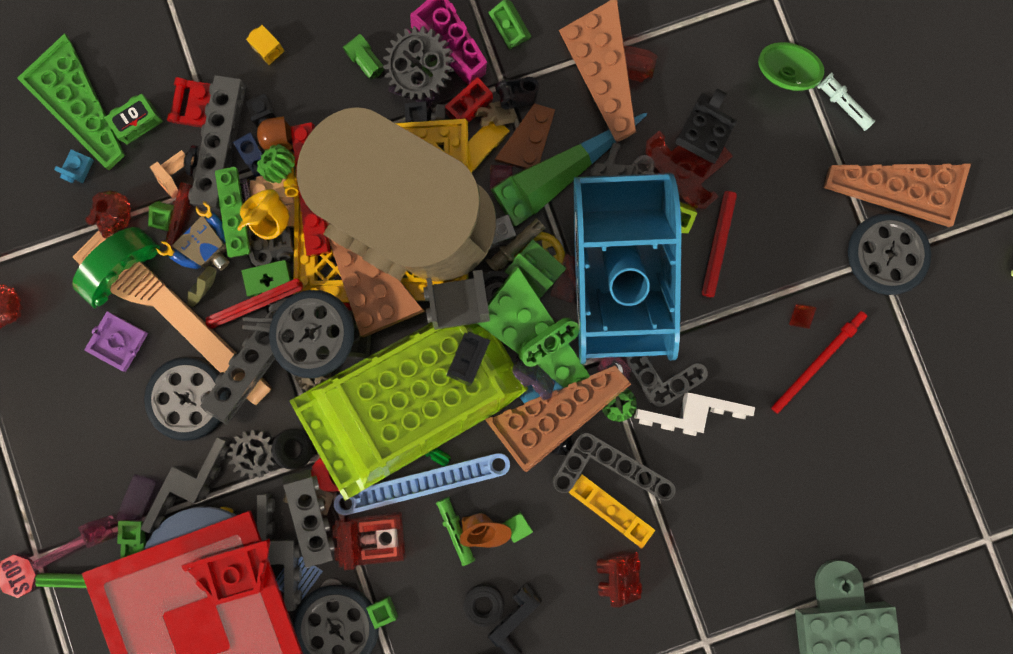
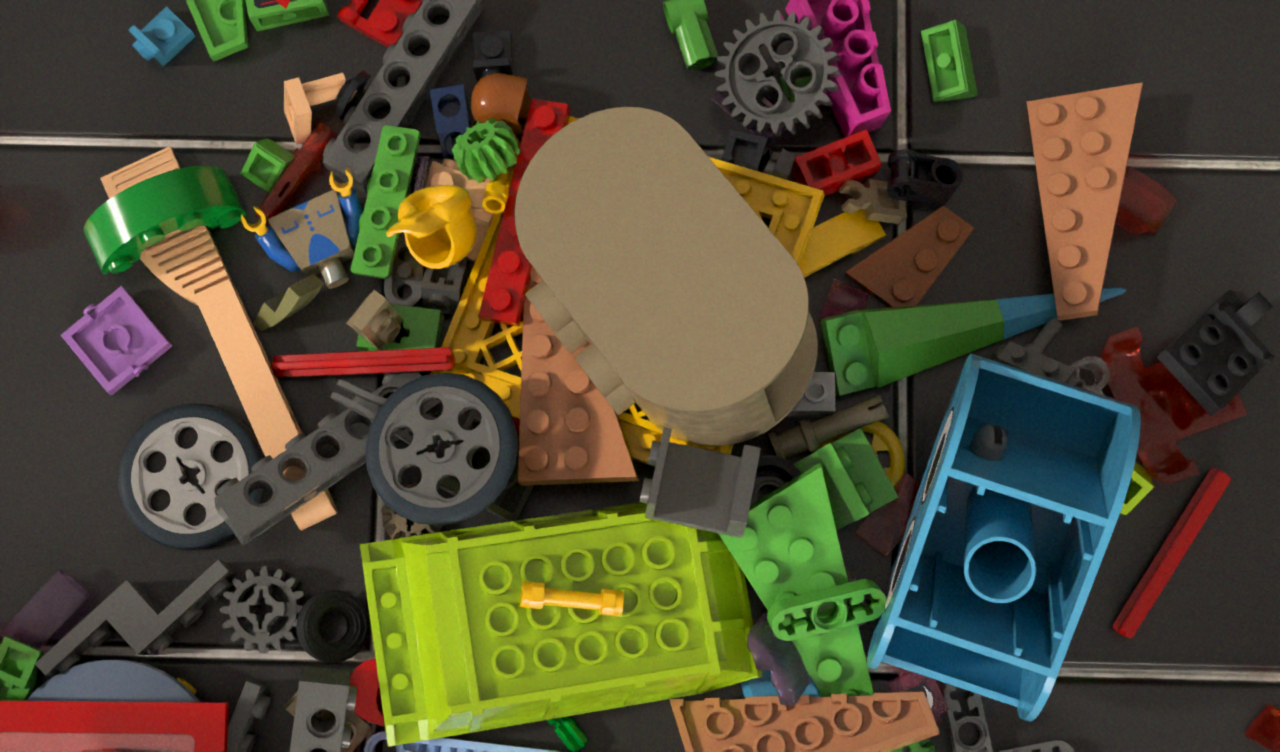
camera: 20 degrees right, 5 degrees down
(109, 212) = (188, 130): clear red animal -> none
(251, 278) = (376, 320): none -> dark tan plate
(431, 382) = (535, 595): none -> yellow bar
(468, 358) = (683, 586): black hinge -> none
(601, 221) = (990, 442): none -> dark grey hinge

